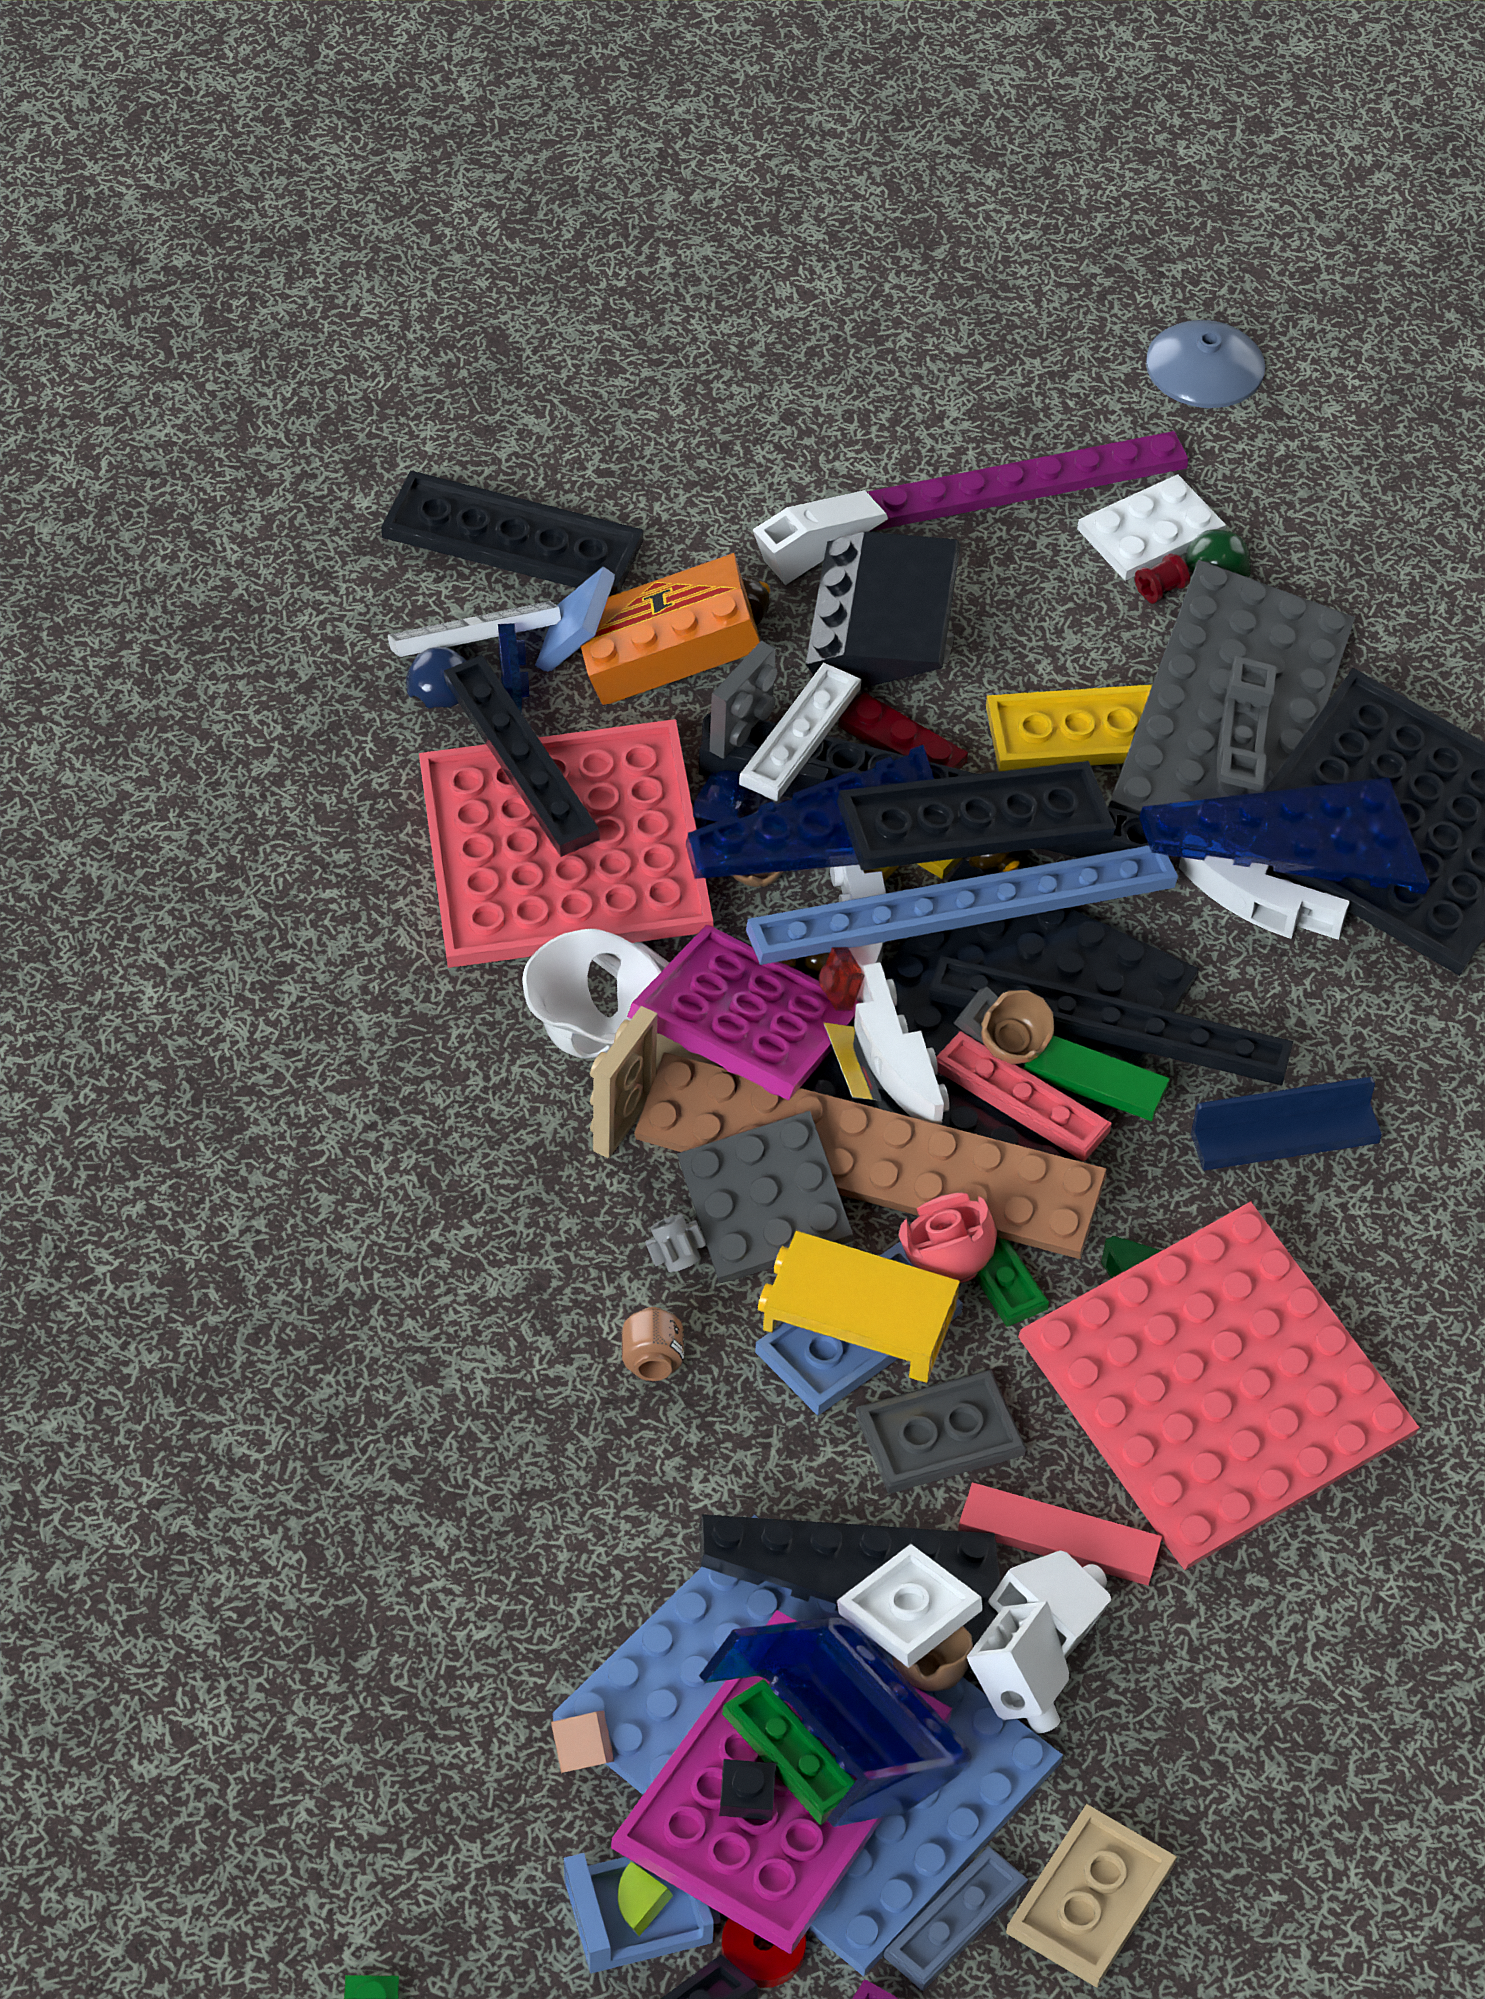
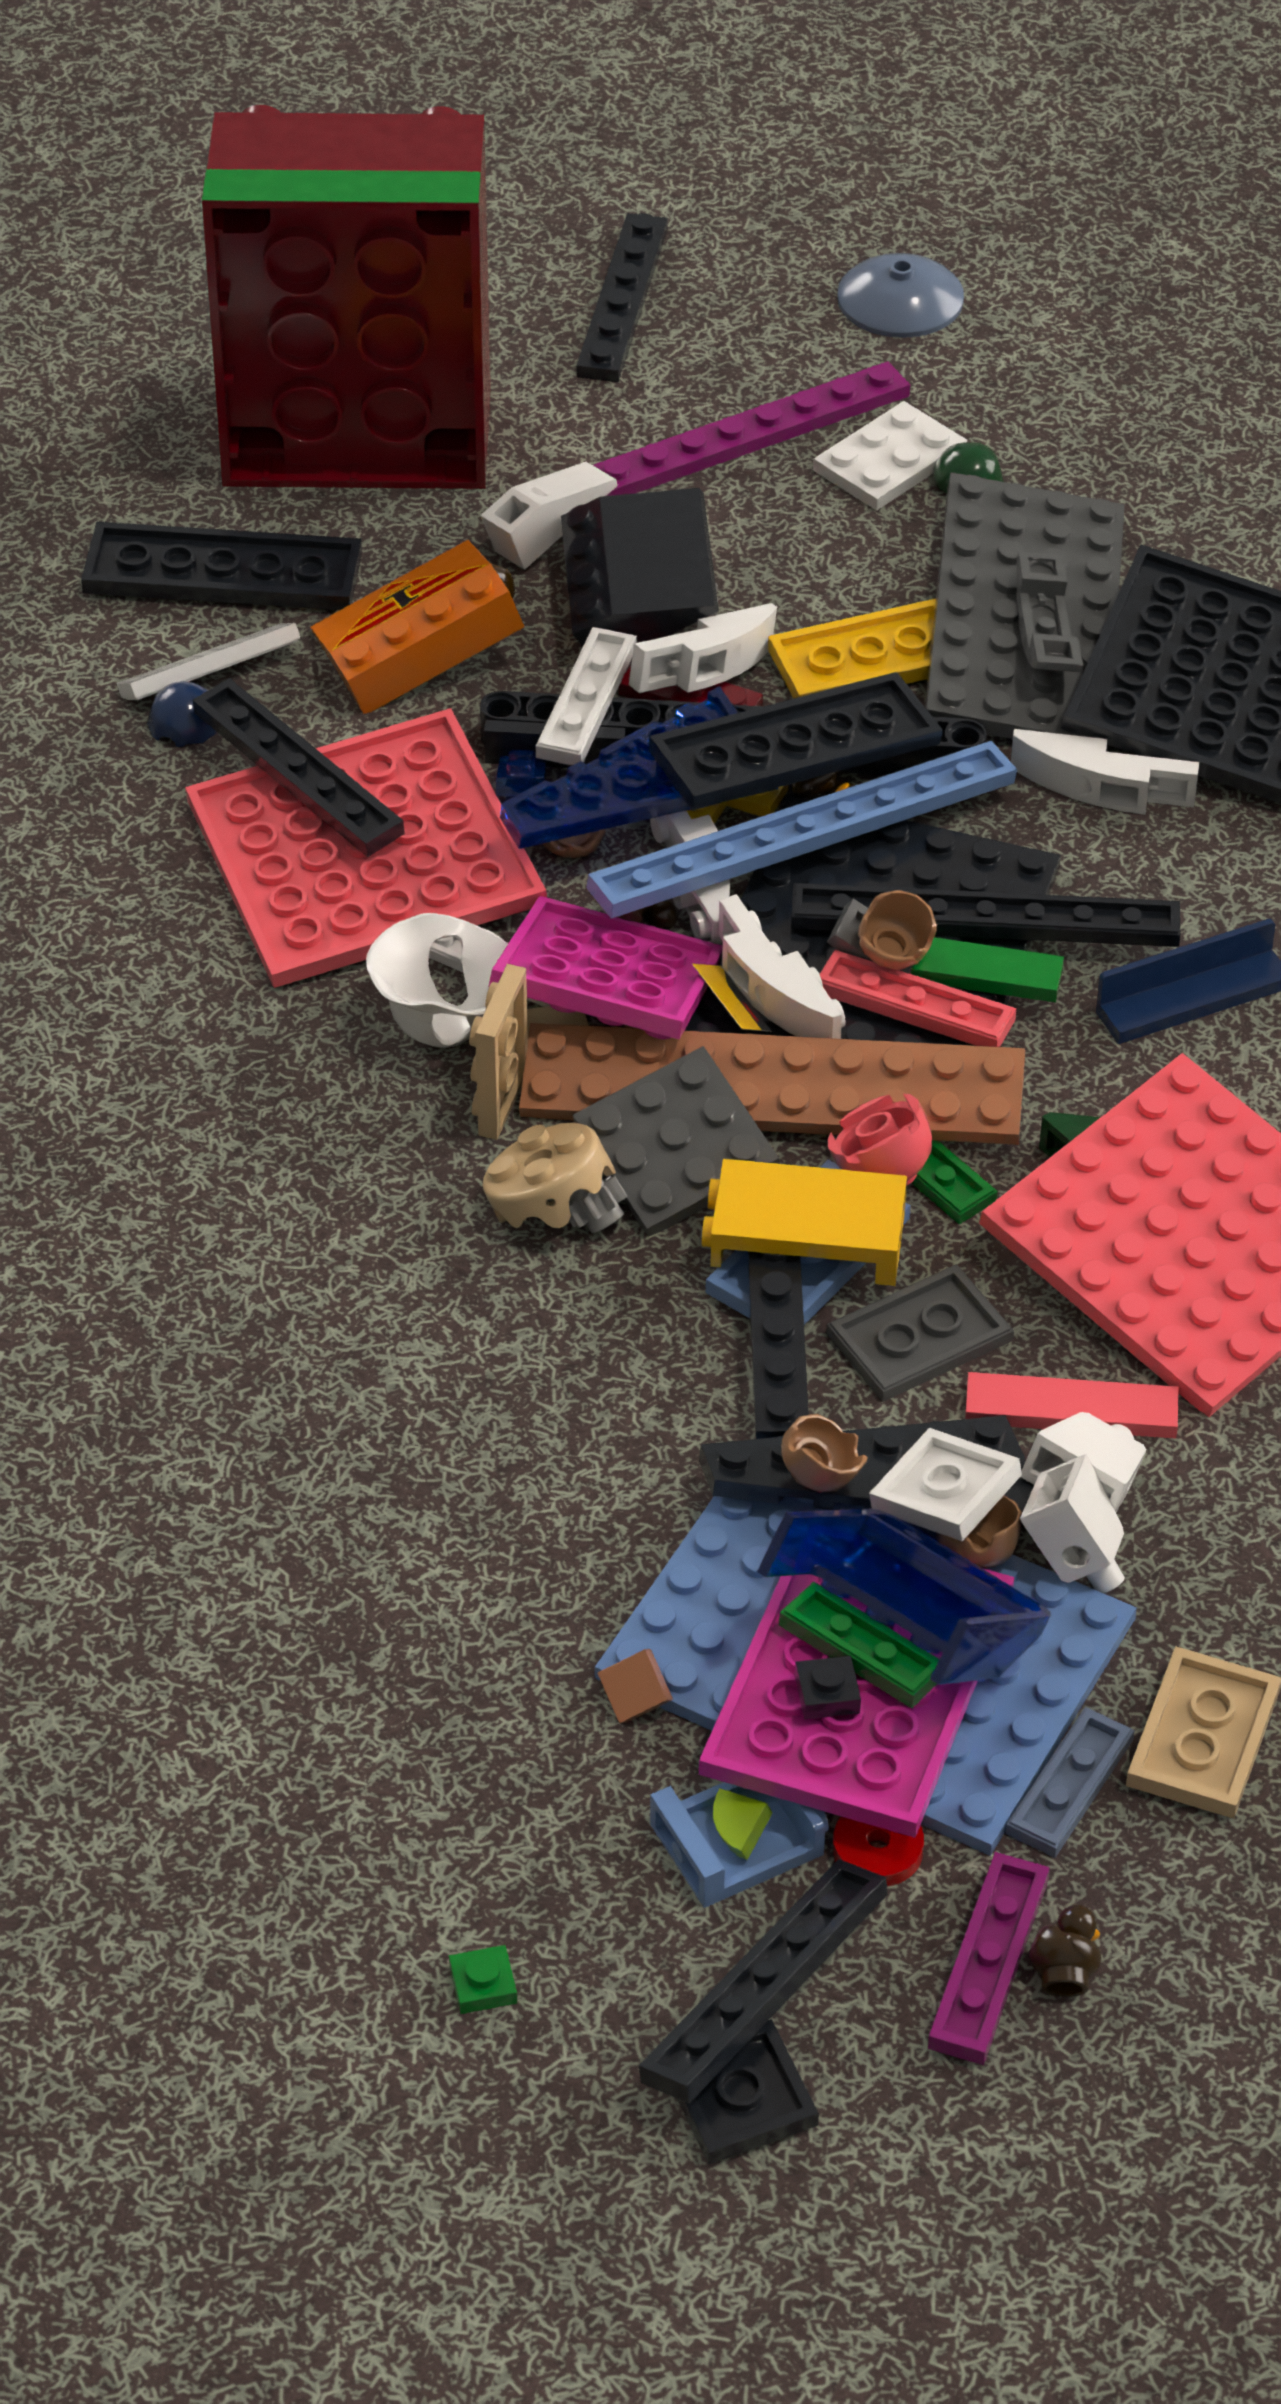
camera: 10 degrees left, 5 degrees down
(511, 656) = (257, 680): clear blue plate -> none
(578, 622) = (321, 632): medium blue tile -> none
(634, 1207) = (542, 1167): none -> tan plate
(652, 1344) = (598, 1300): nougat head -> none
(673, 302) = (349, 298): none -> dark red piece
(743, 700) = (522, 670): dark grey plate -> none
(801, 1427) = (777, 1342): none -> black plate
(804, 1550) = (821, 1453): none -> medium nougat hair
(841, 978) = (697, 921): clear red plate -> none
(922, 709) = (707, 656): none -> white slope
(947, 322) = (622, 297): none -> black plate
(1162, 578) = (917, 498): dark red bush -> none
(1298, 831) = (1135, 702): clear blue wing -> none

